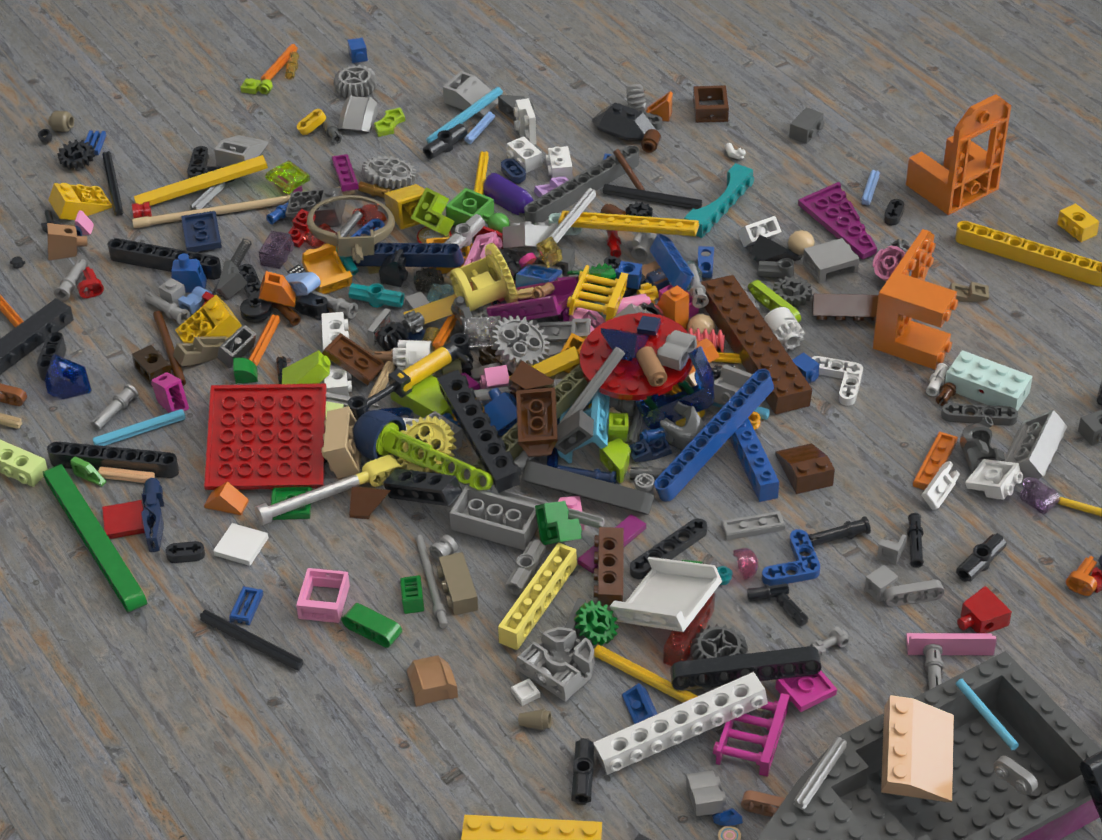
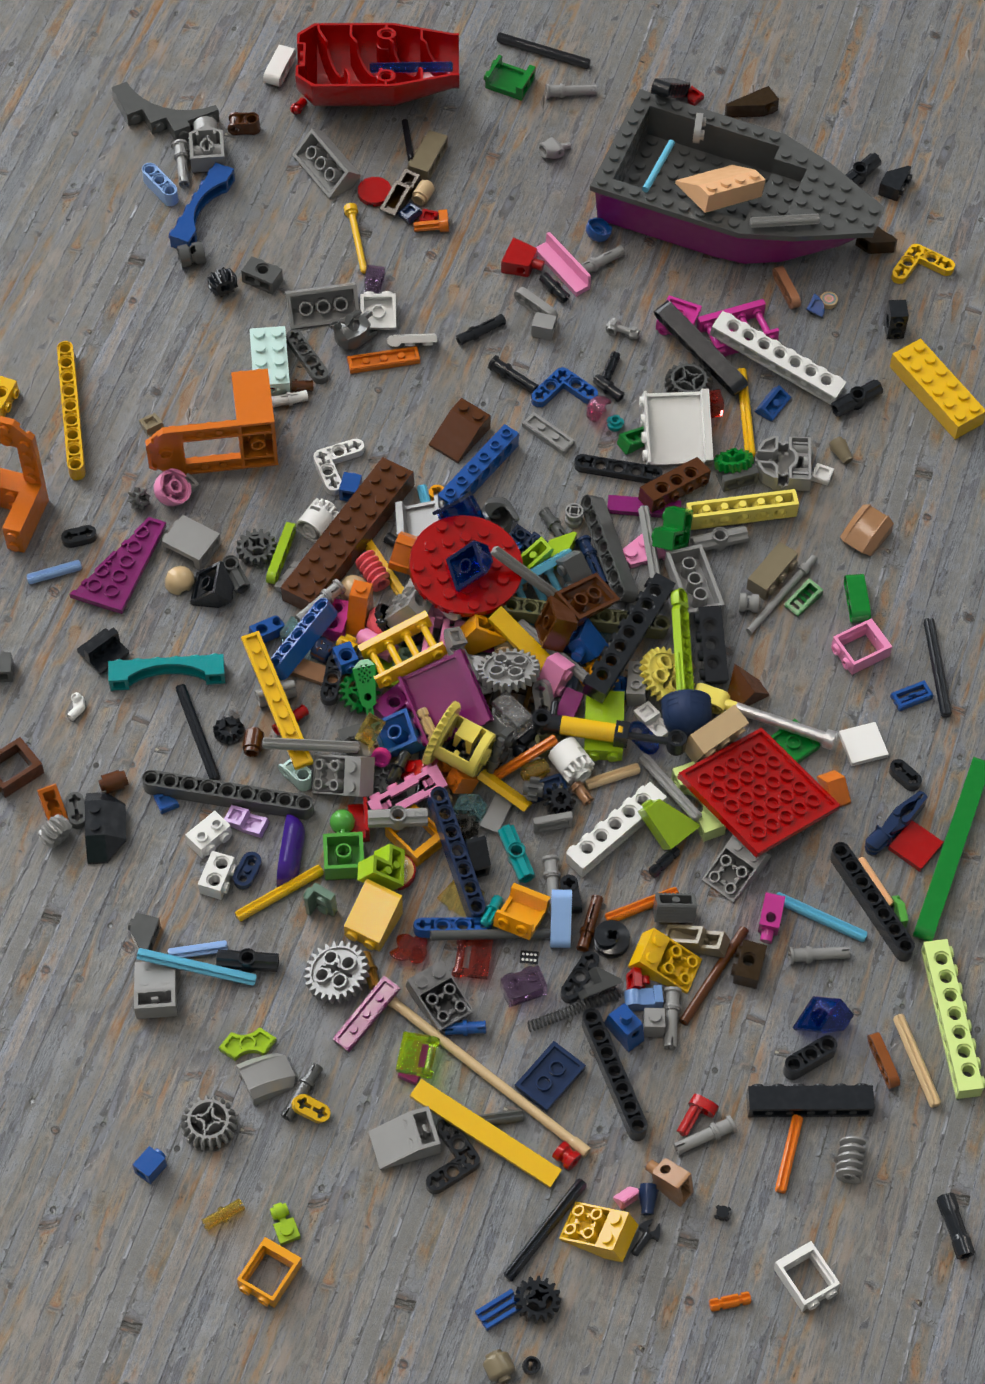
camera: 130 degrees left, 15 degrees up
(236, 73) = (279, 1253): none -> light orange window
(244, 371) = (693, 884): green brick -> none
(277, 289) = (593, 918): orange slope -> none
(279, 63) = (226, 1233): orange axle -> none
(300, 227) = (479, 986): red slope -> none
(352, 246) = (488, 887): dark tan brick -> none
(353, 359) = (615, 801): reddish brown tile -> none
(446, 181) = (321, 898): none -> sand green bracket
(525, 120) = (167, 897): white plate -> none
(539, 292) = (426, 701): medium nougat pin -> none
(628, 170) = (183, 762): reddish brown bar -> none
(649, 325) = (435, 563): dark blue tile -> none
(651, 366) = (486, 528): medium nougat brick -> none
(676, 349) = (453, 521): light grey brick -> none
(705, 793) = (812, 324): light grey brick -> none
(714, 435) = (485, 487): blue beam -> none
(768, 228) = (196, 609): white brick -> none
(771, 179) = (103, 648): none -> black bracket
(844, 305) = (243, 498): slope -> none
(890, 550) = (501, 337): light grey panel -> none
(926, 620) = (554, 287): none -> black pin
(981, 557) = (467, 283): black piece -> none

